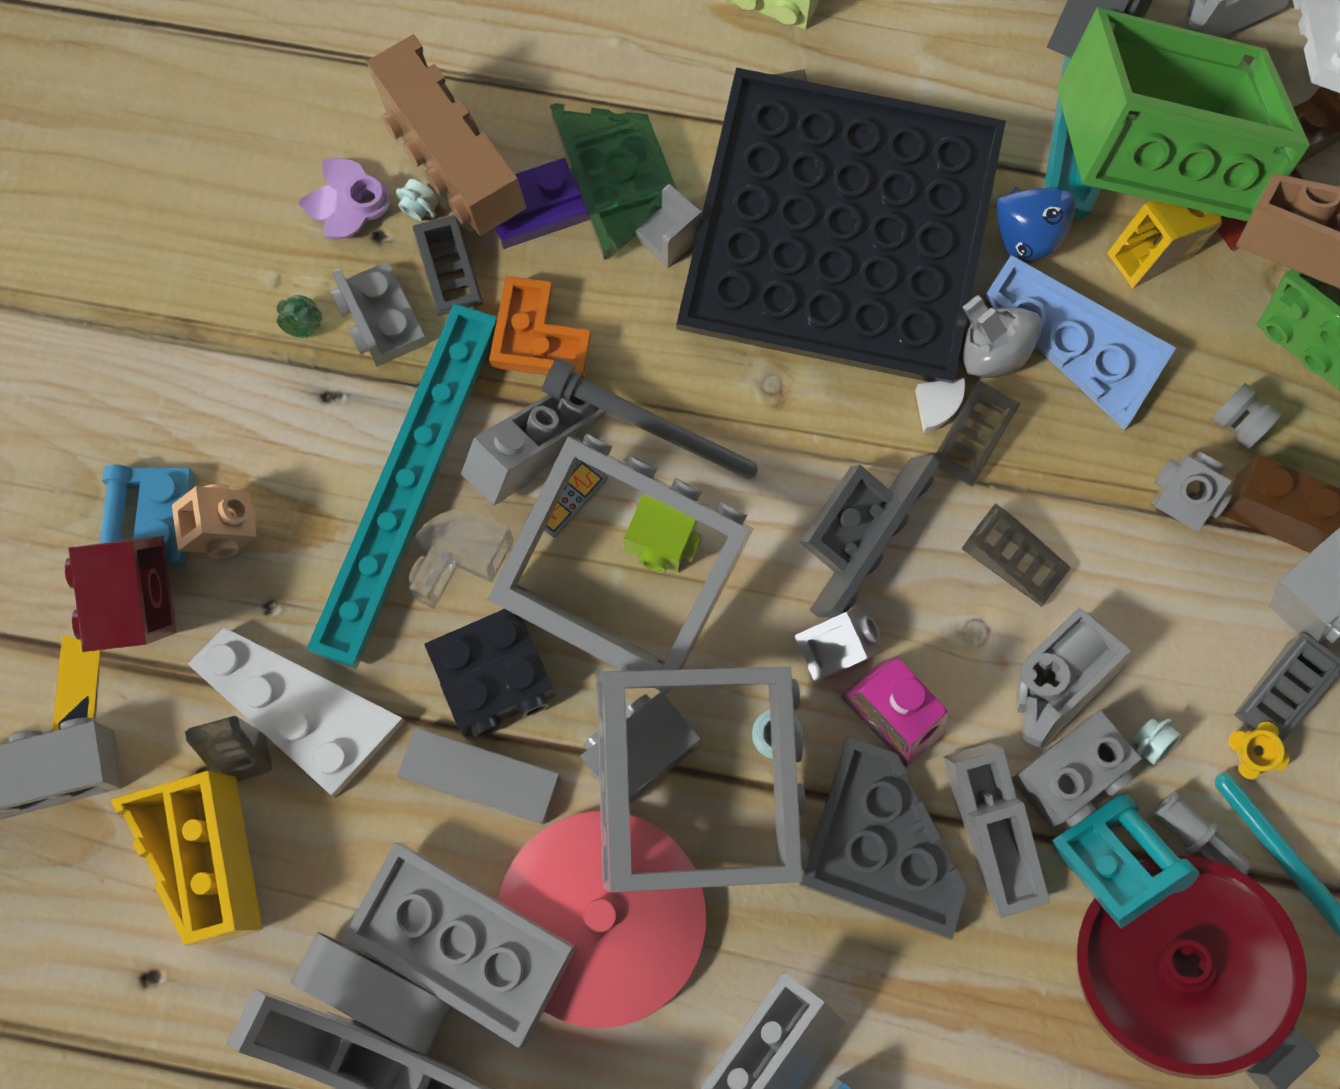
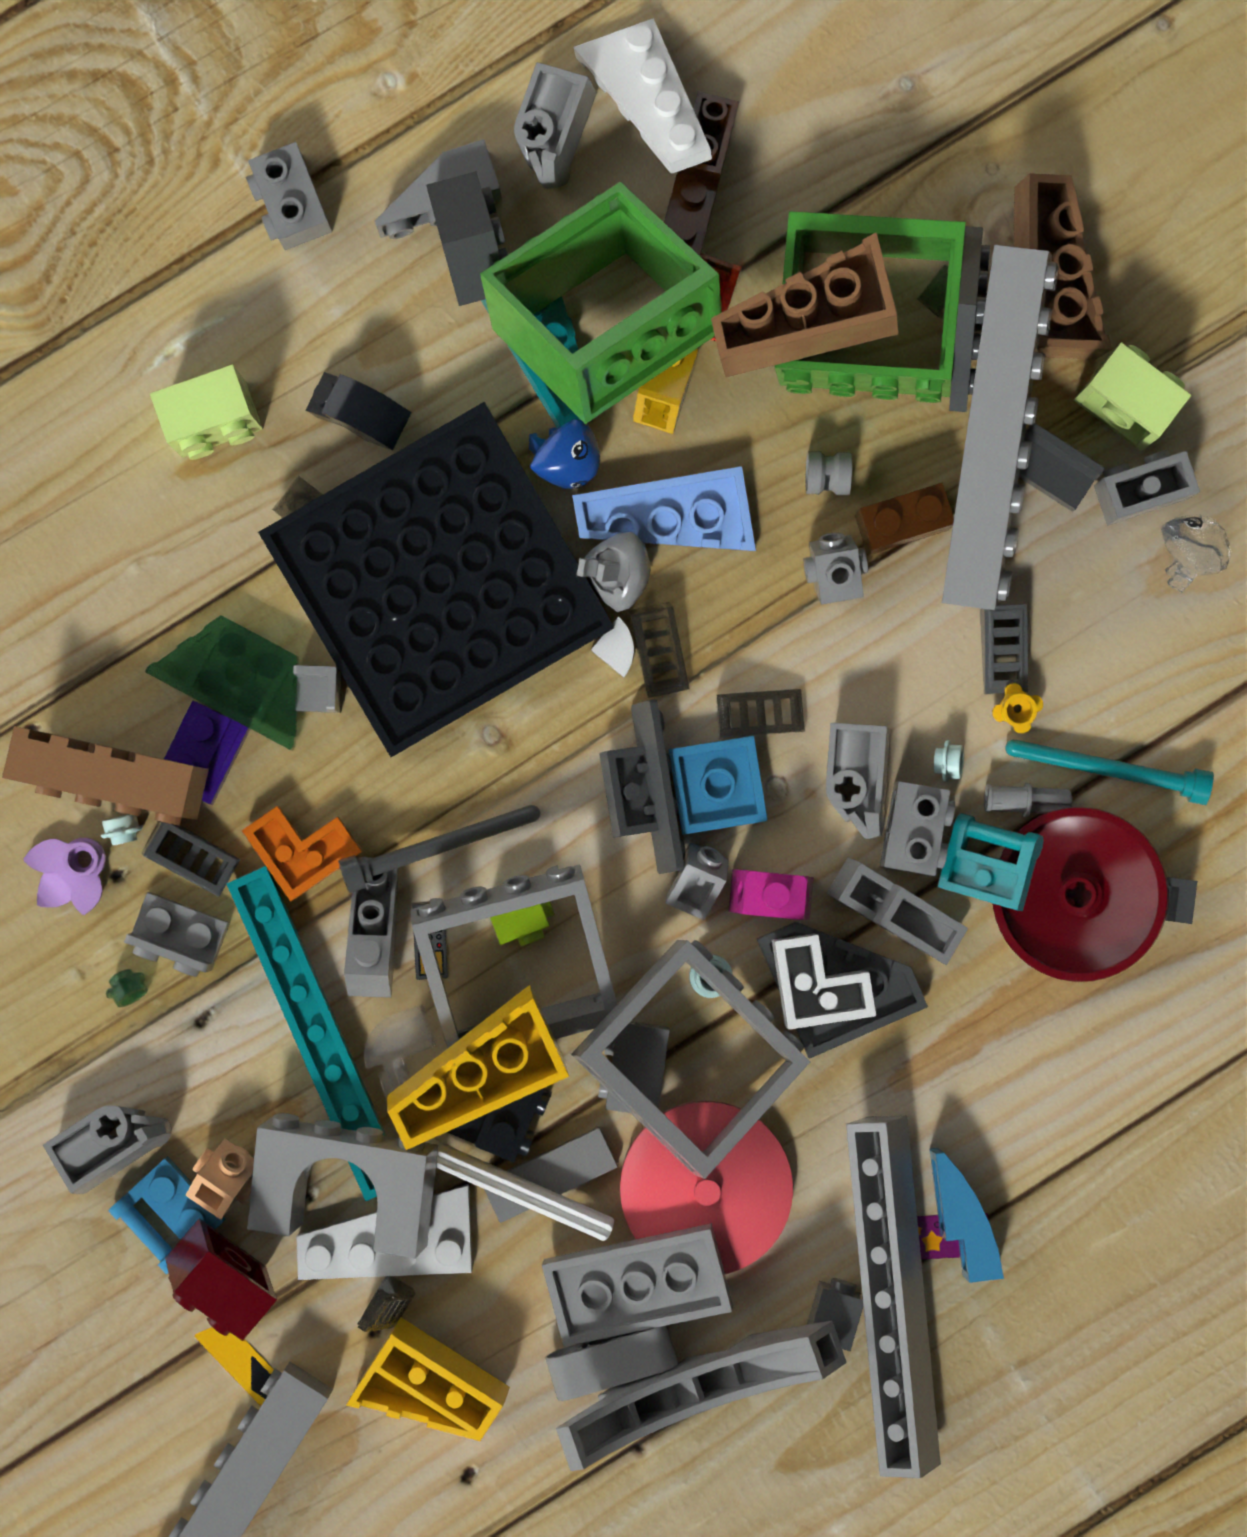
camera: 45 degrees left, 15 degrees up
(153, 412) = (90, 1155): none -> light grey piece
(356, 639) = (400, 1177): none -> light grey arch
(438, 754) = (523, 1191): none -> white axle
(519, 617) = (481, 1072): none -> yellow wedge
(857, 819) = (812, 997): none -> white brick
(898, 59) = (359, 409): none -> black brick
(928, 580) = (718, 785): none -> dark azure plate

